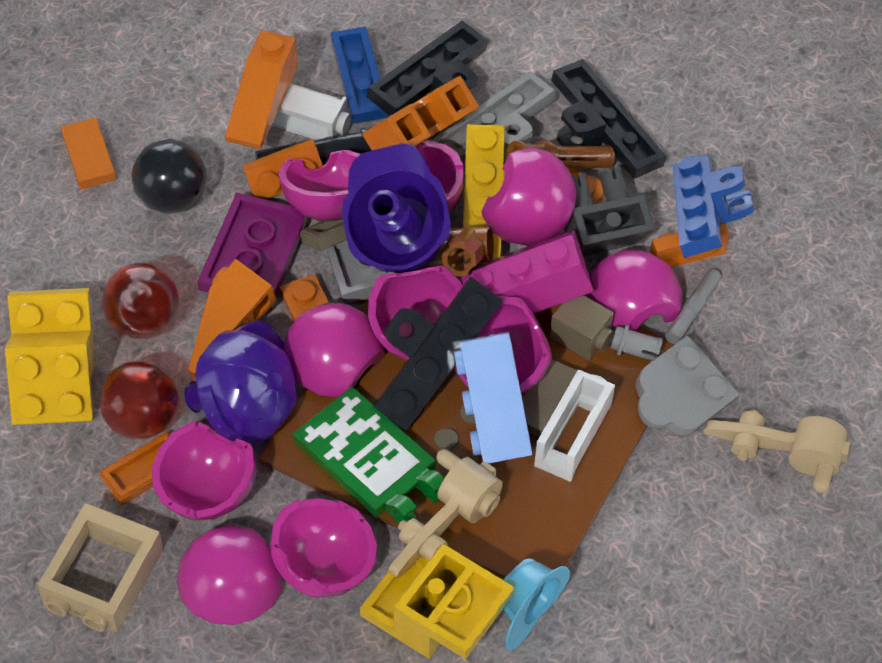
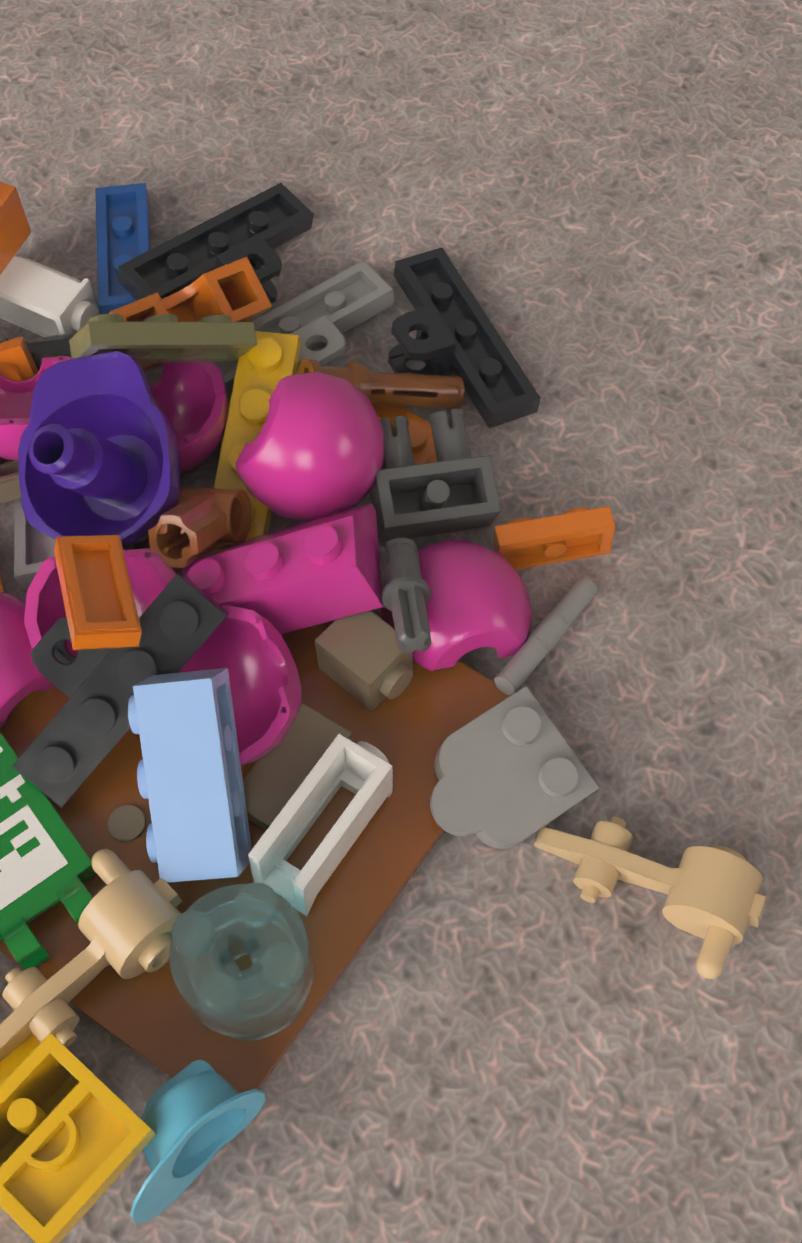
camera: 10 degrees right, 5 degrees up
(421, 291) = (97, 592): none -> orange tile
(425, 133) = (165, 338): none -> olive plate
(542, 503) = (234, 924): none -> clear light blue brick
(607, 282) = (406, 594): none -> dark grey axle
(635, 343) = (443, 692): light grey pin -> none
(702, 198) = (580, 469): blue plate -> none

